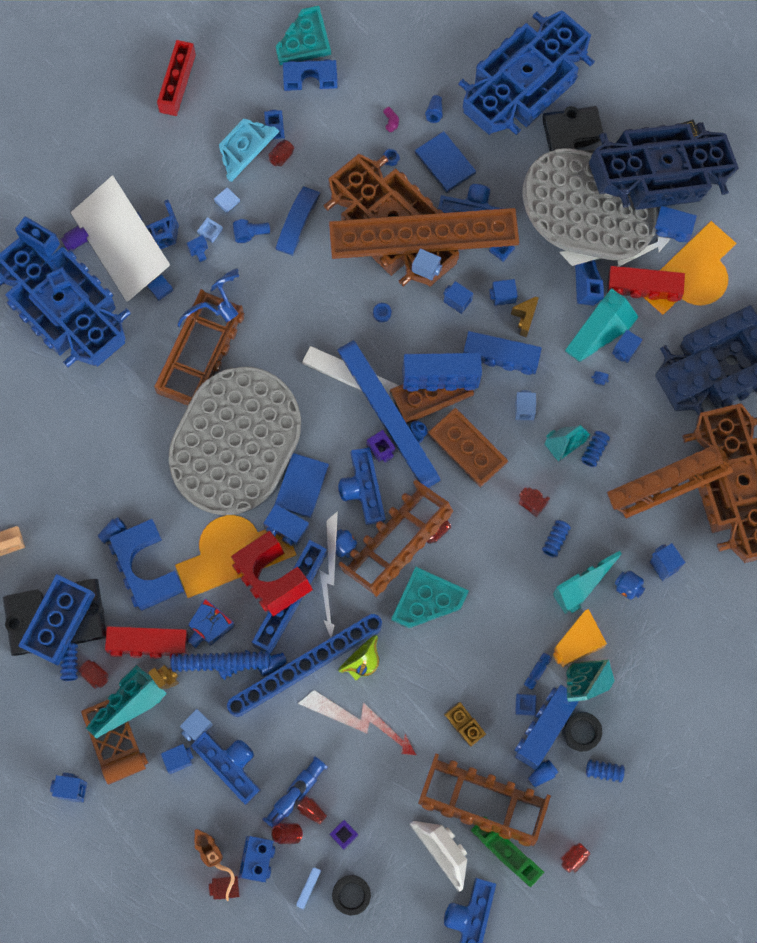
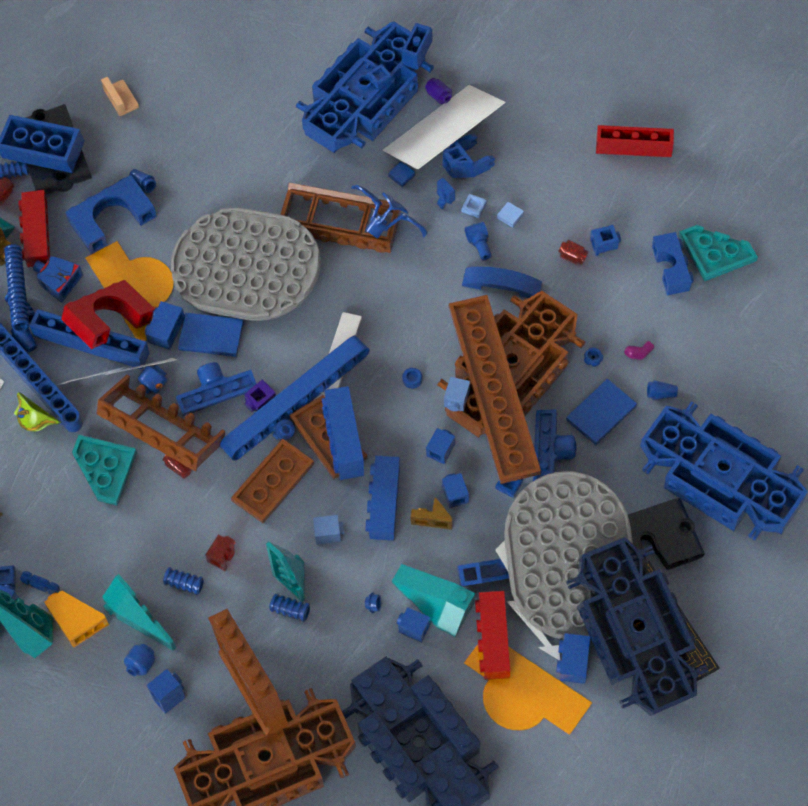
camera: 85 degrees right, 10 degrees down
(244, 145) = (572, 215): medium azure wing -> none

